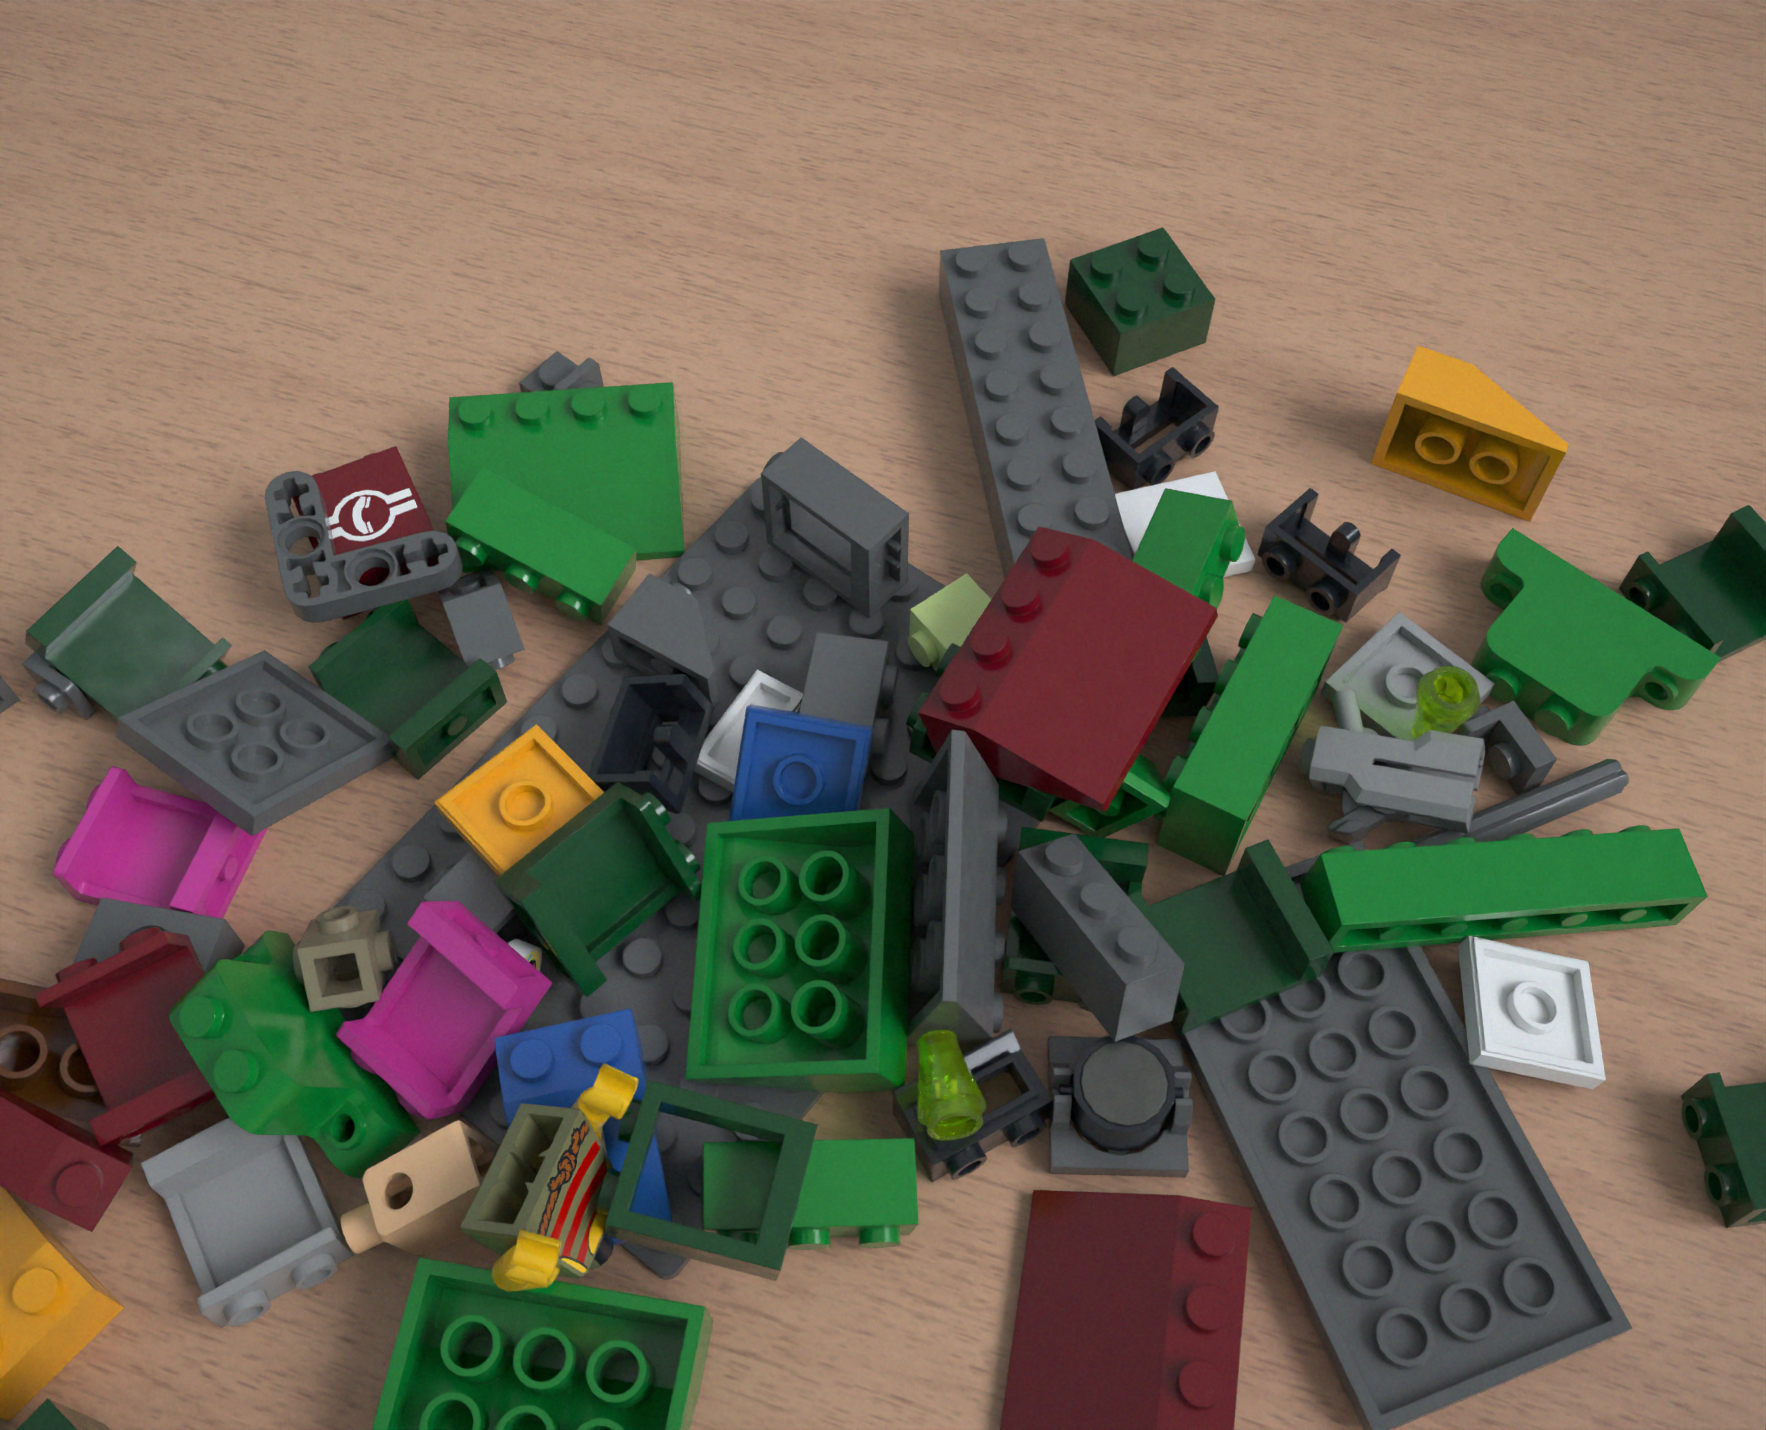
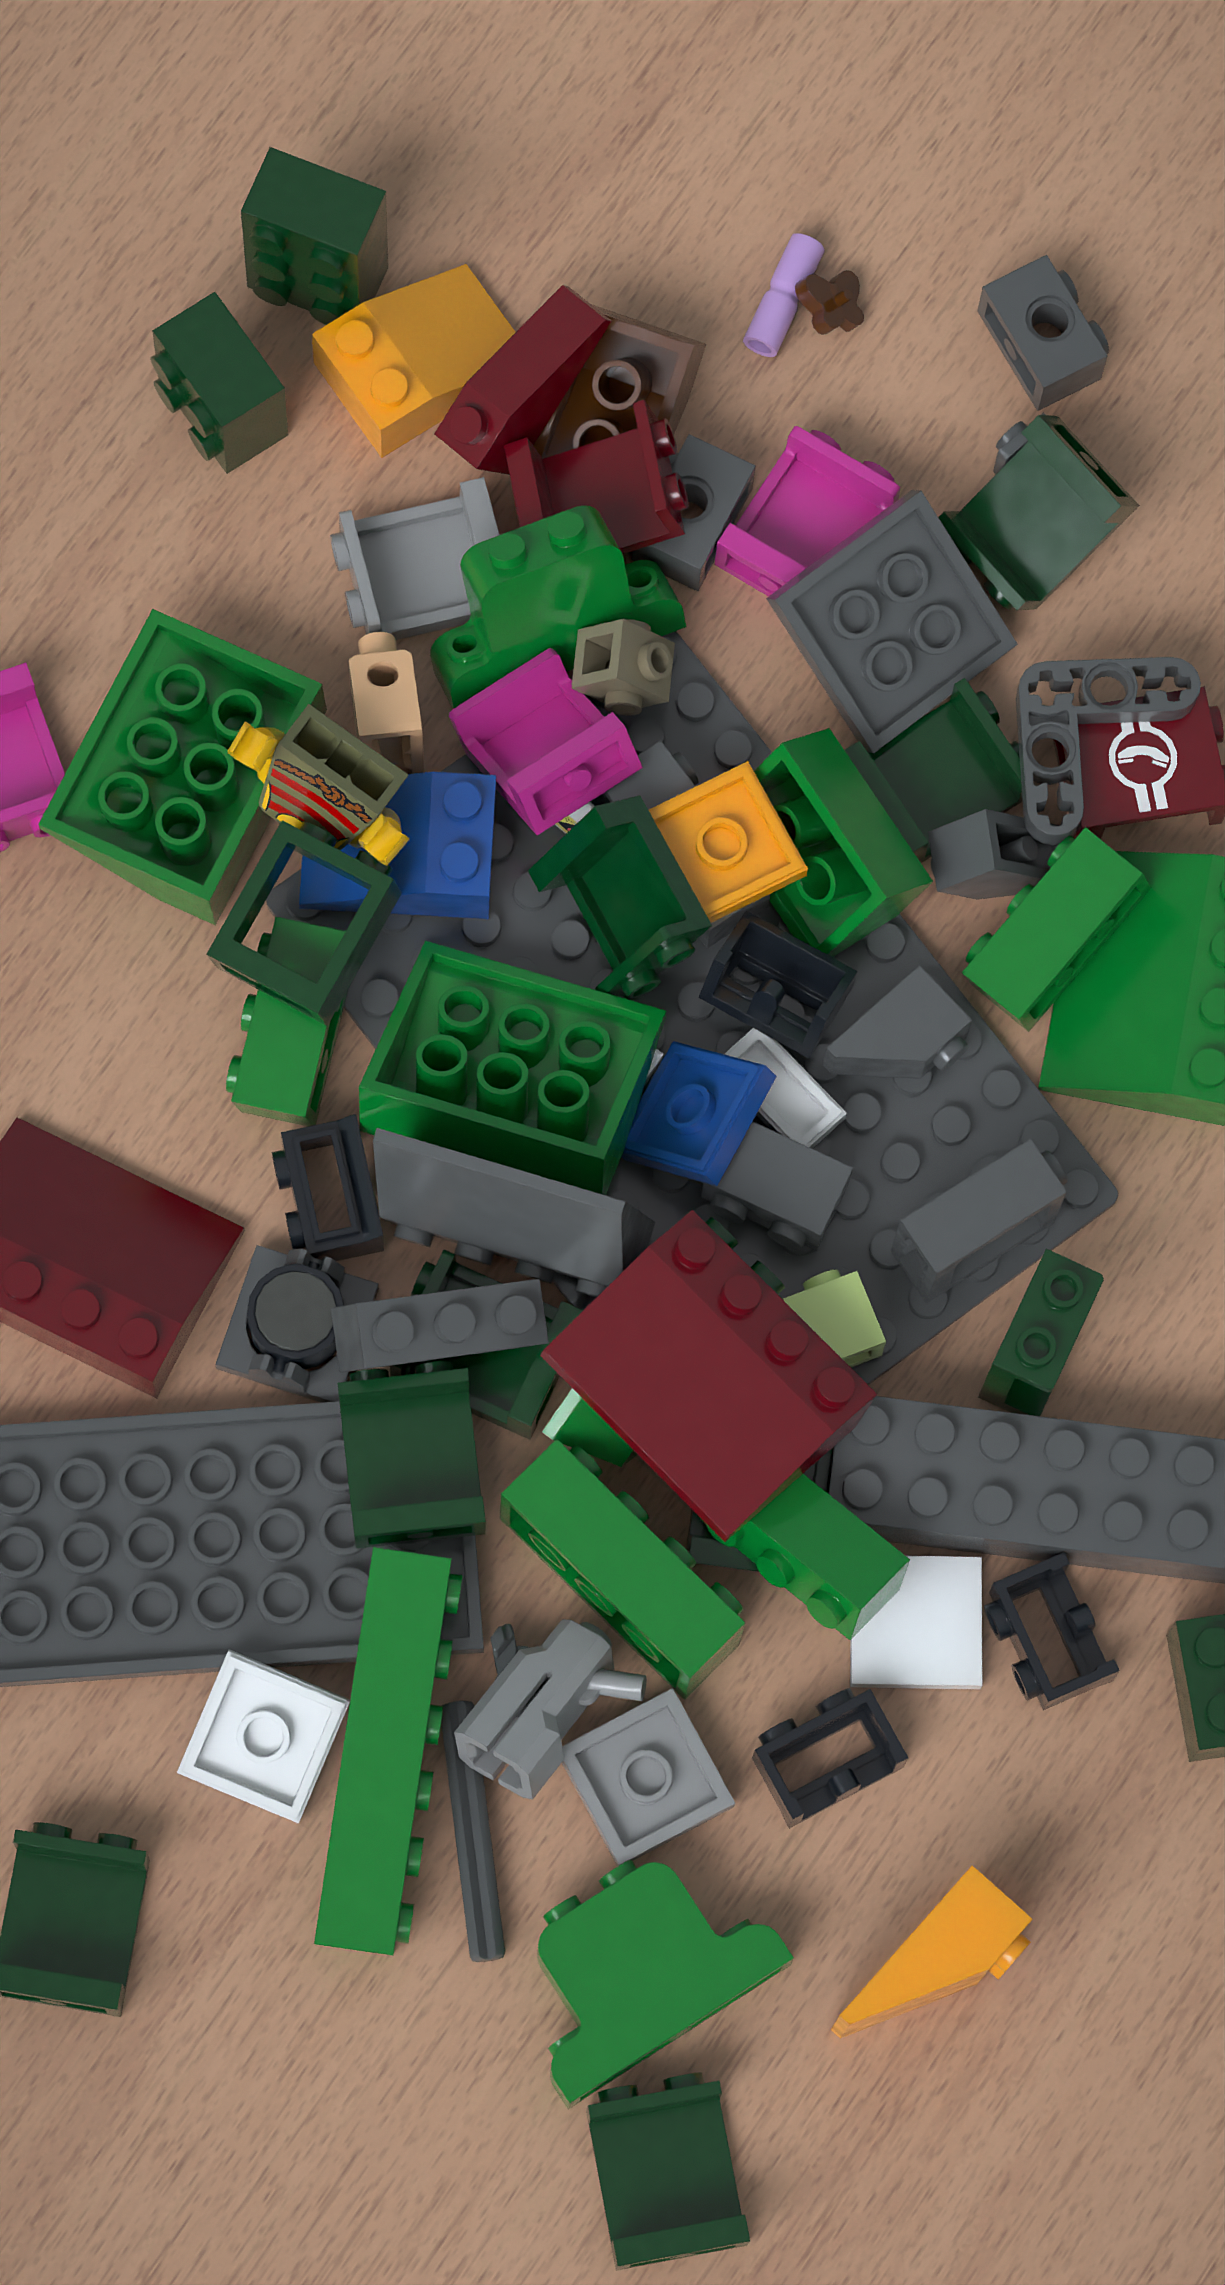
camera: 100 degrees right, 15 degrees up
(498, 704) = (853, 851): none -> green slope
(923, 461) = (1041, 1335): none -> dark green panel
(947, 1090) = (331, 1150): clear neon green cone -> none
(1444, 700) = (590, 1744): clear neon green cone -> none
(1511, 745) = (539, 1852): dark grey bracket -> none

